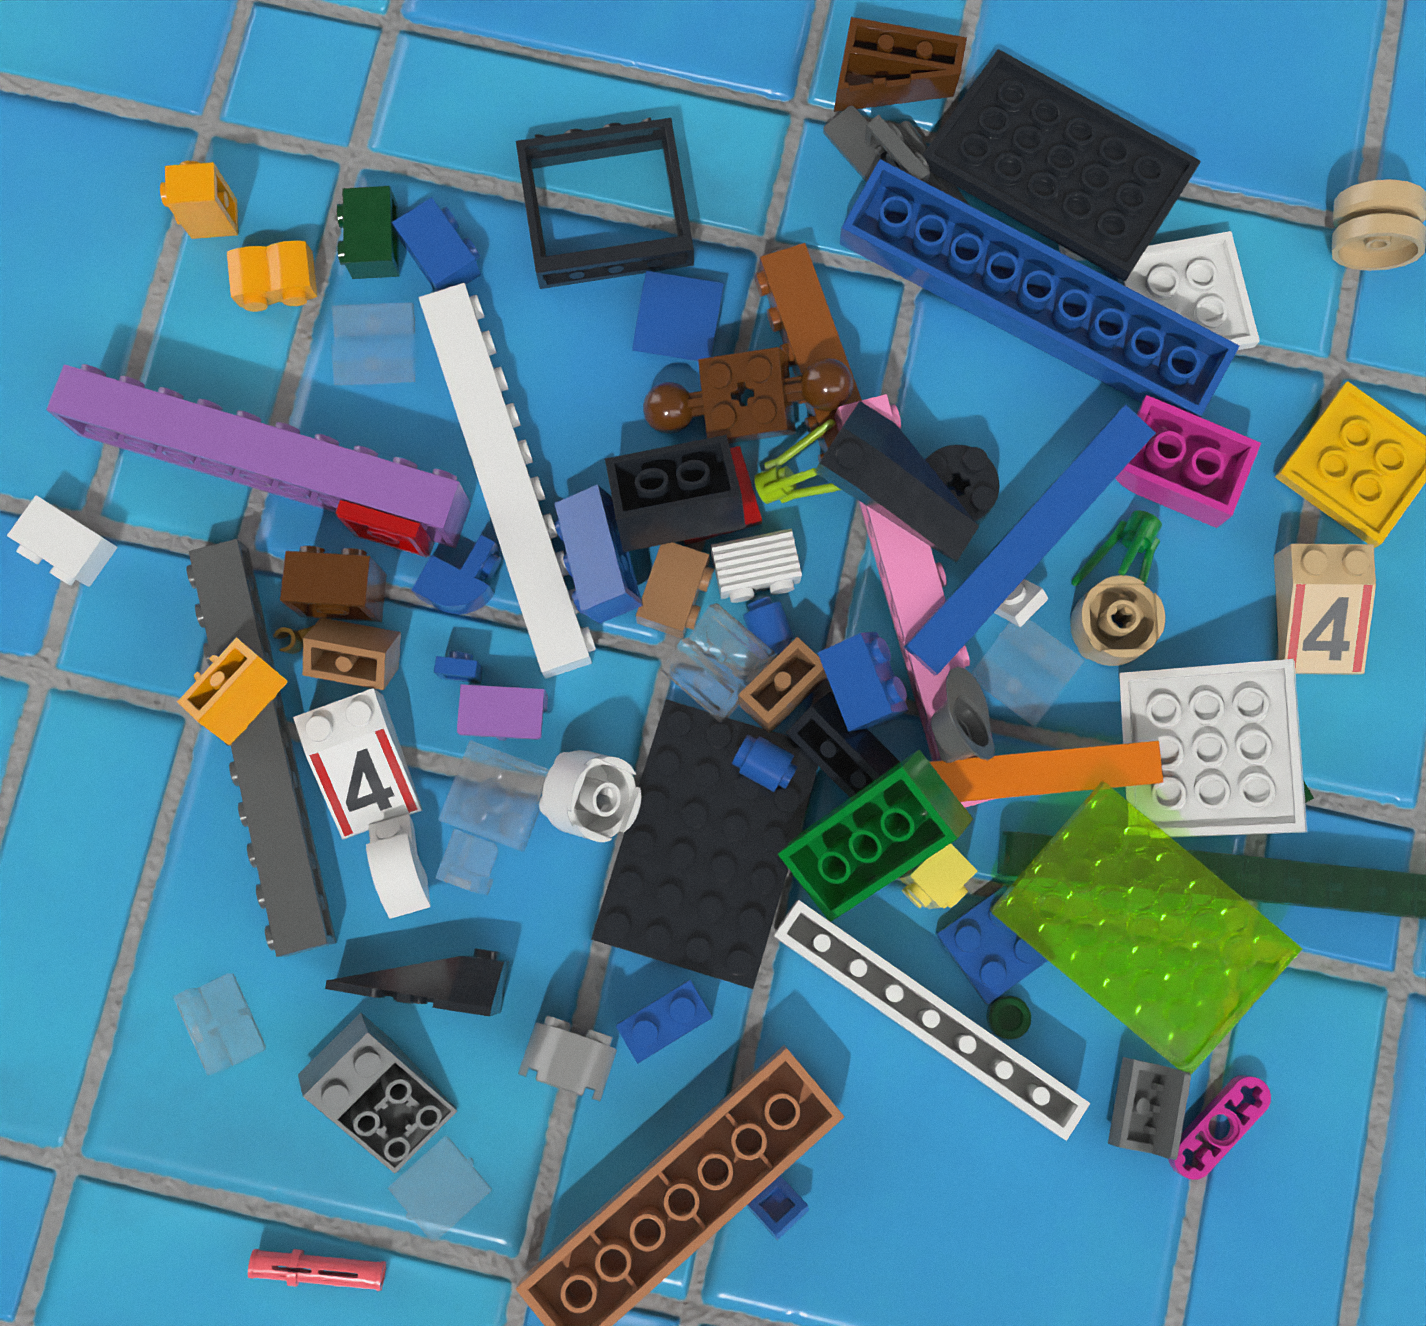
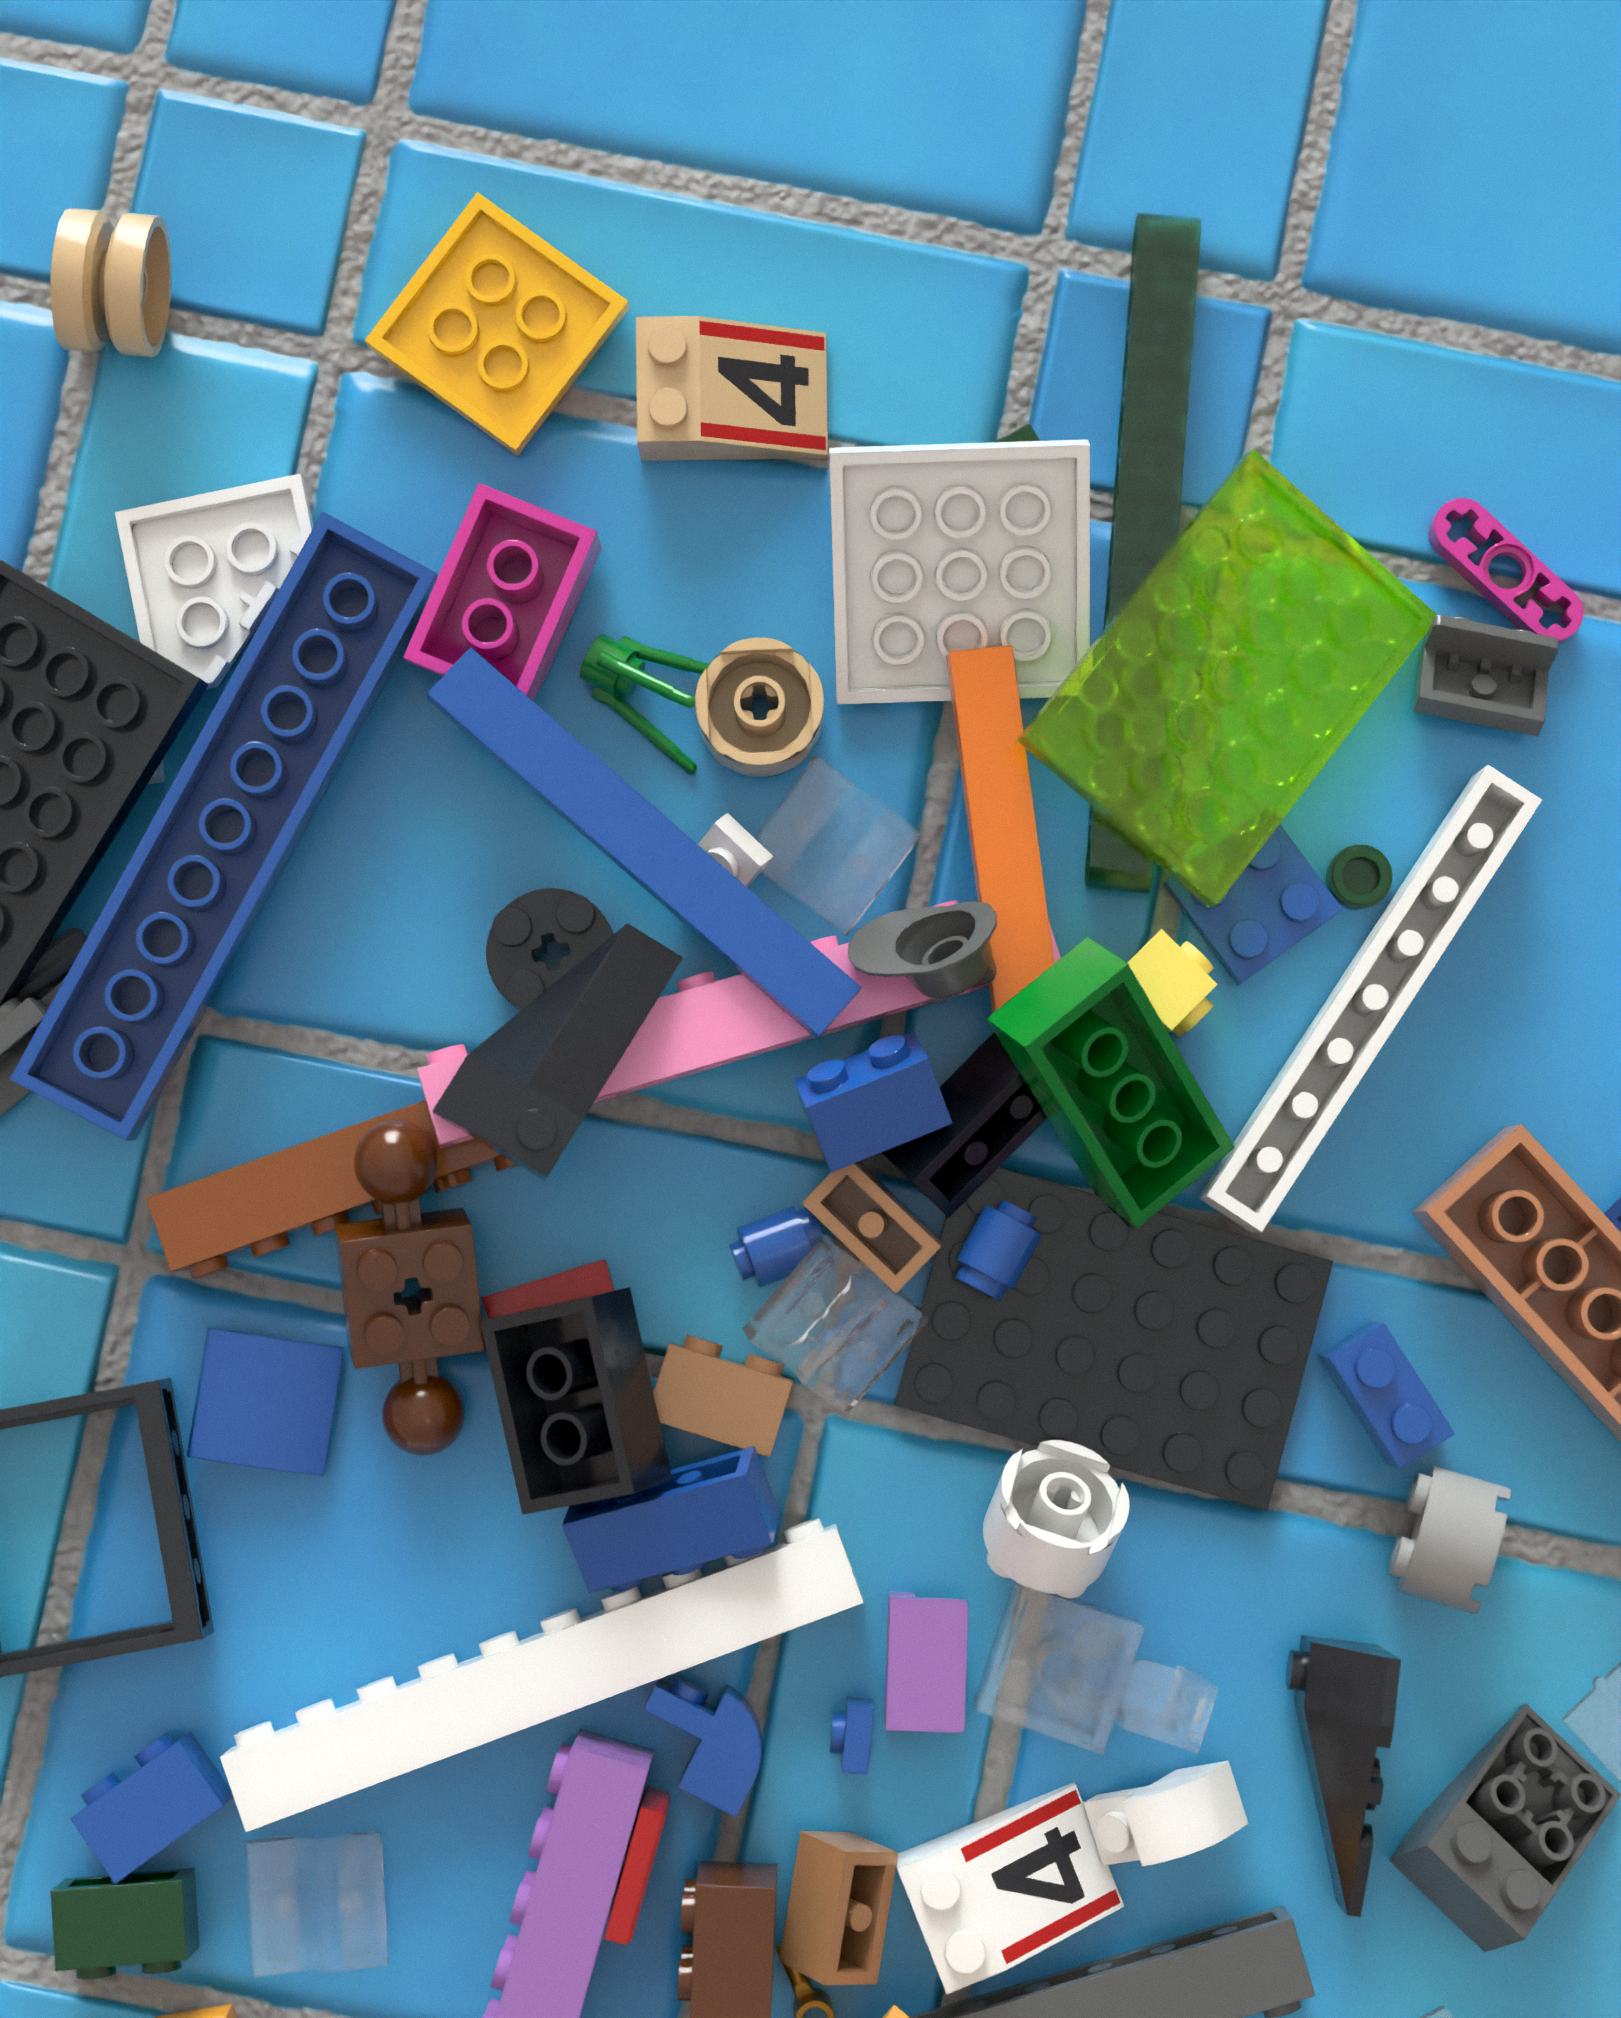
camera: 90 degrees left, 5 degrees up
(756, 565) = (679, 1267): white brick -> none
(780, 483) = (543, 1230): lime plant -> none

